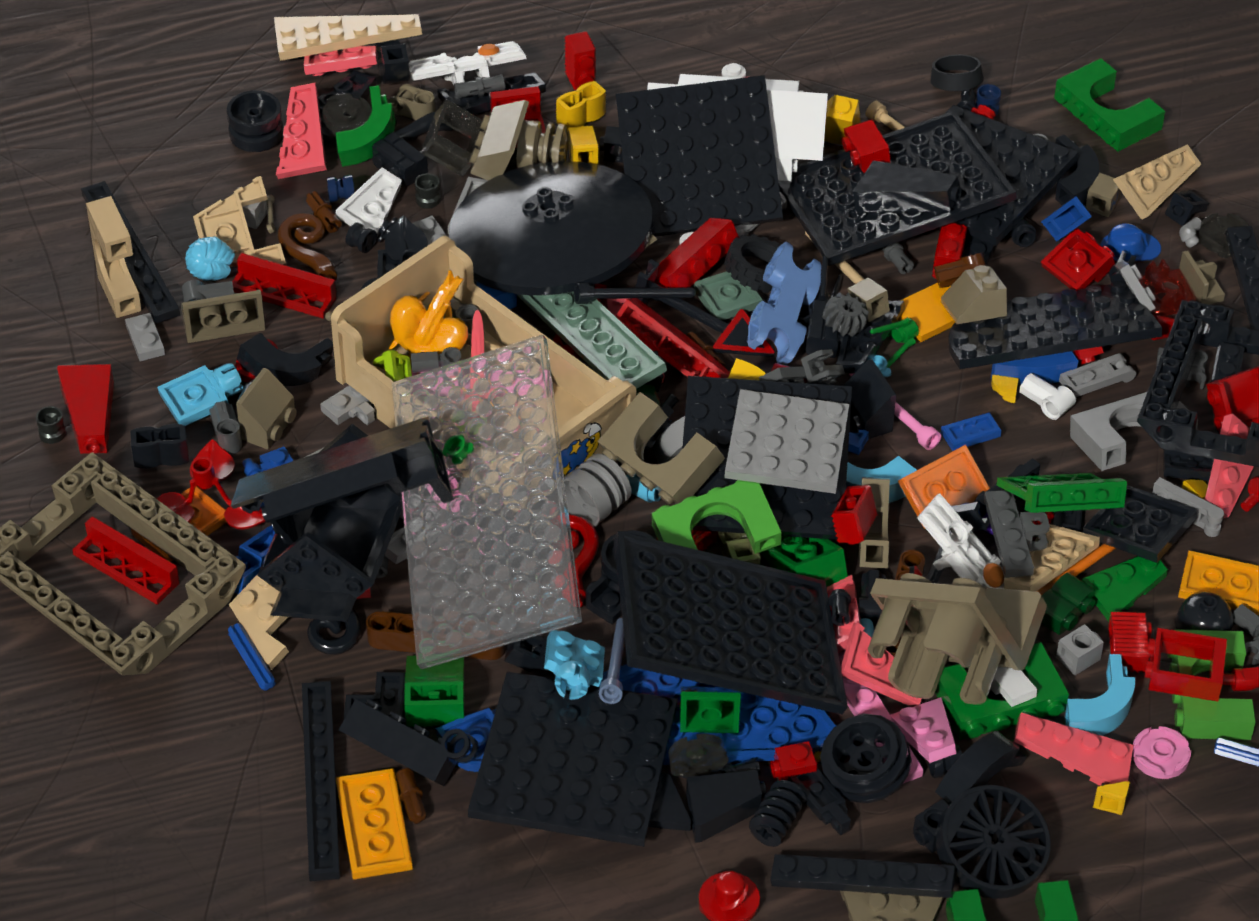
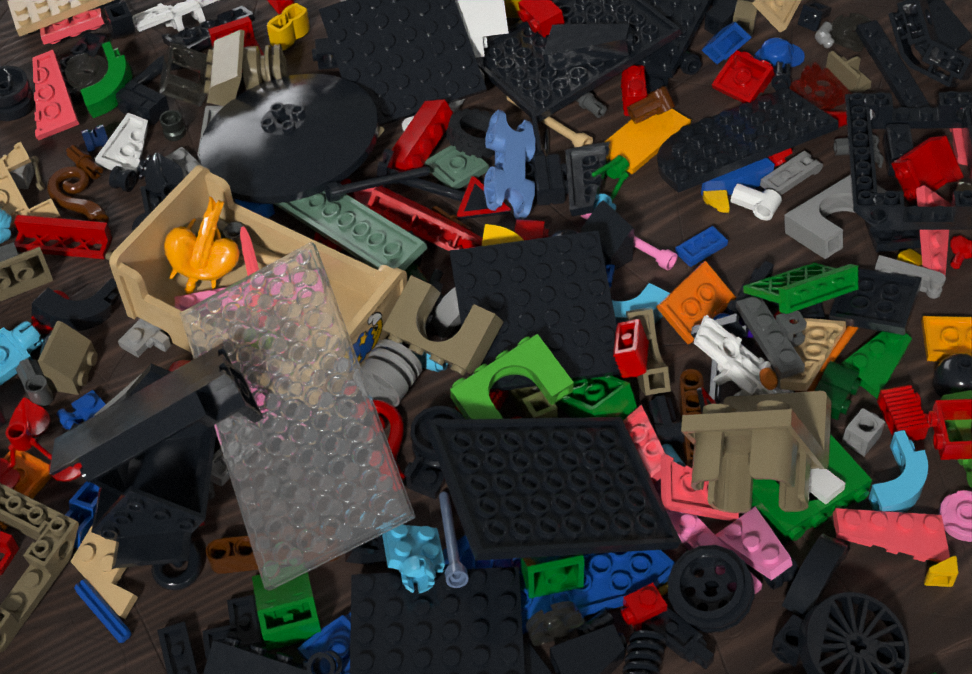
camera: 10 degrees left, 5 degrees up
(395, 365) = (180, 294): lime bracket -> none
(413, 102) = (144, 49): dark tan piece -> none
(431, 360) = (210, 283): dark grey bar -> none
(457, 448) = (251, 364): green plate -> none
(479, 86) = (197, 26): dark grey pin -> none
(582, 144) = (298, 59): yellow slope -> none
(787, 441) = (556, 295): light grey plate -> none
(811, 372) = (555, 223): dark grey plate -> none
(840, 604) = (641, 435): black pin -> none
(845, 314) = (566, 163): dark grey gear -> none
(873, 295) = (581, 146): dark tan brick -> none
(976, 296) = (671, 125): dark tan slope -> none
(1132, 277) = (799, 88): light grey wing -> none

